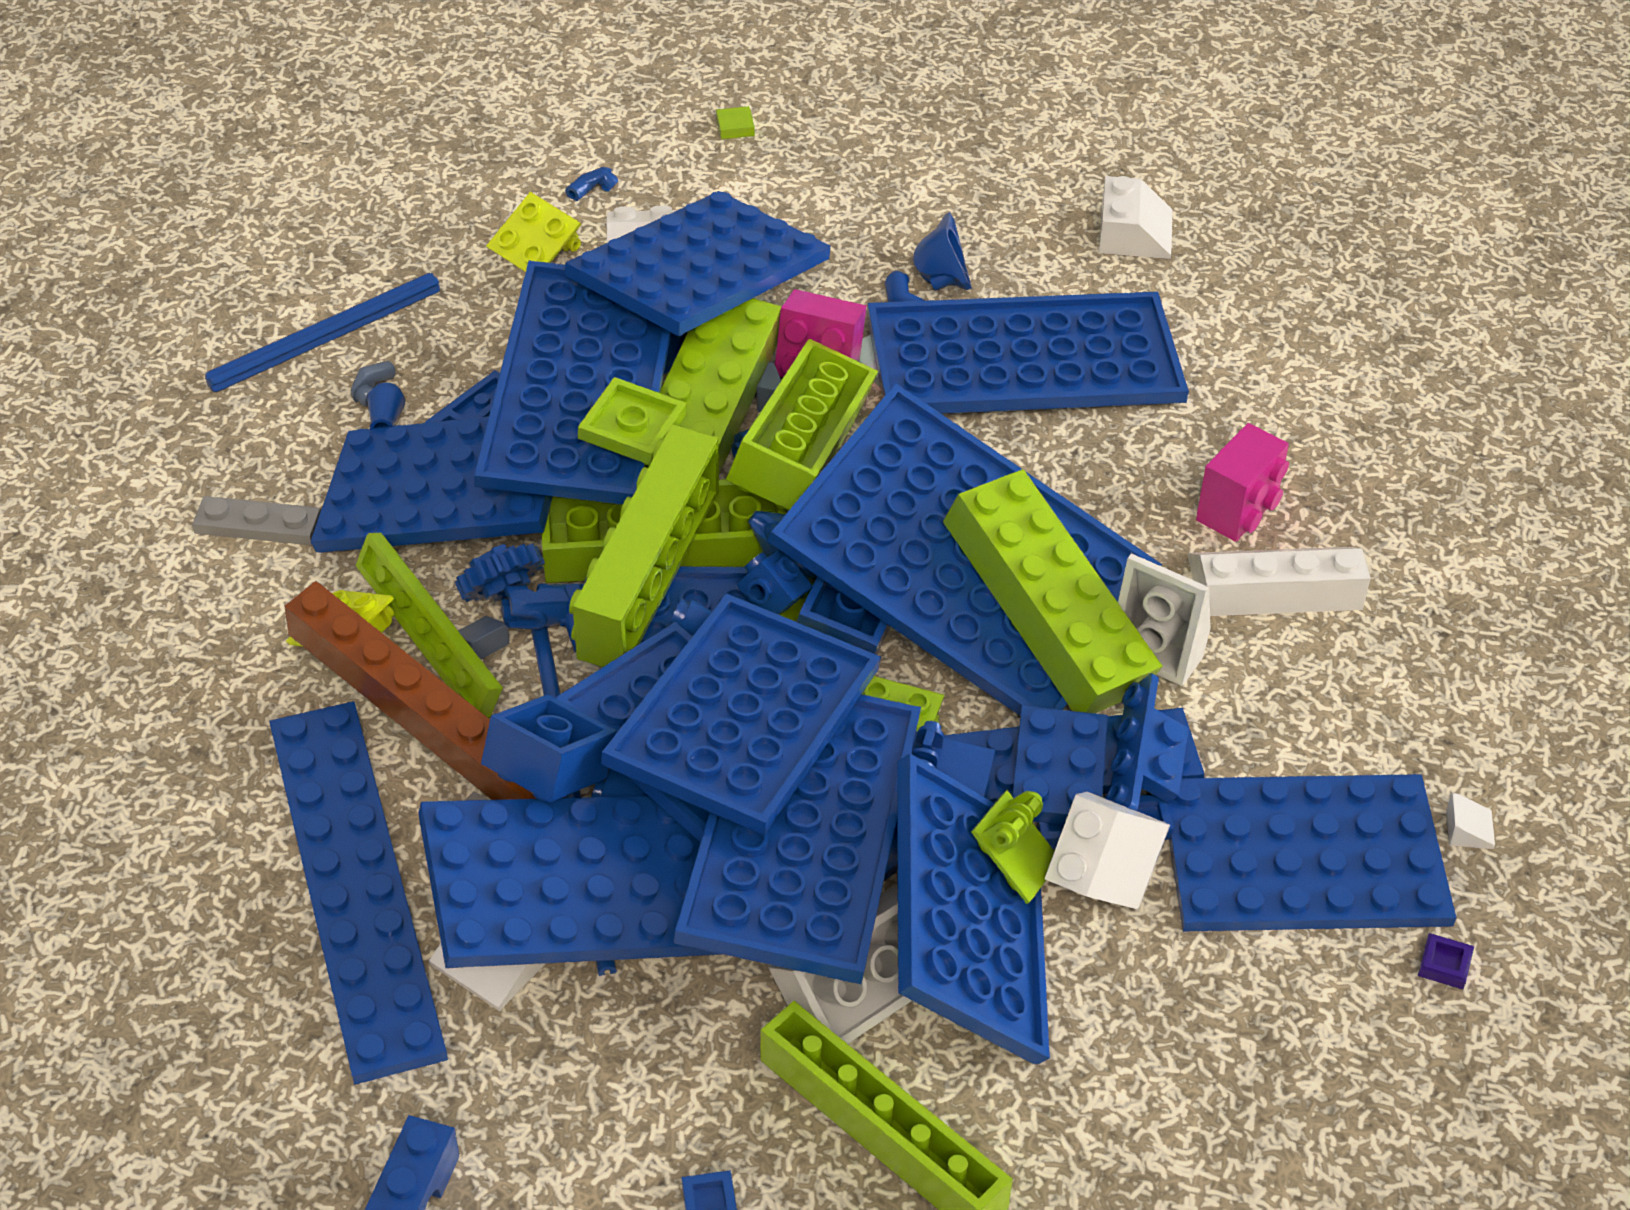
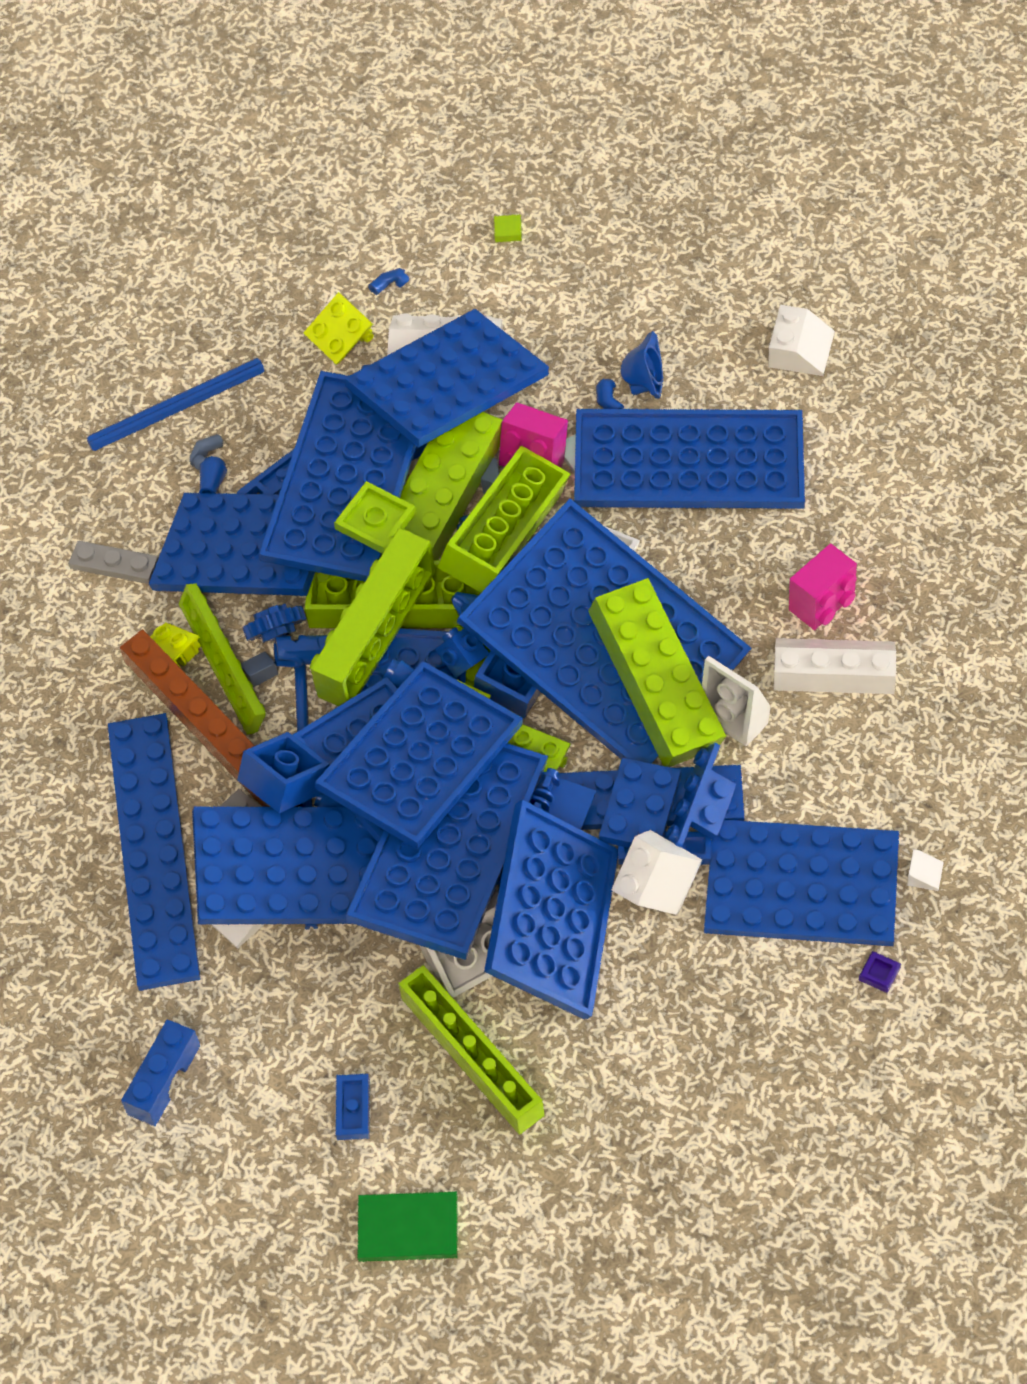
camera: 15 degrees right, 10 degrees up
(1015, 842) = (594, 863): lime hinge -> none

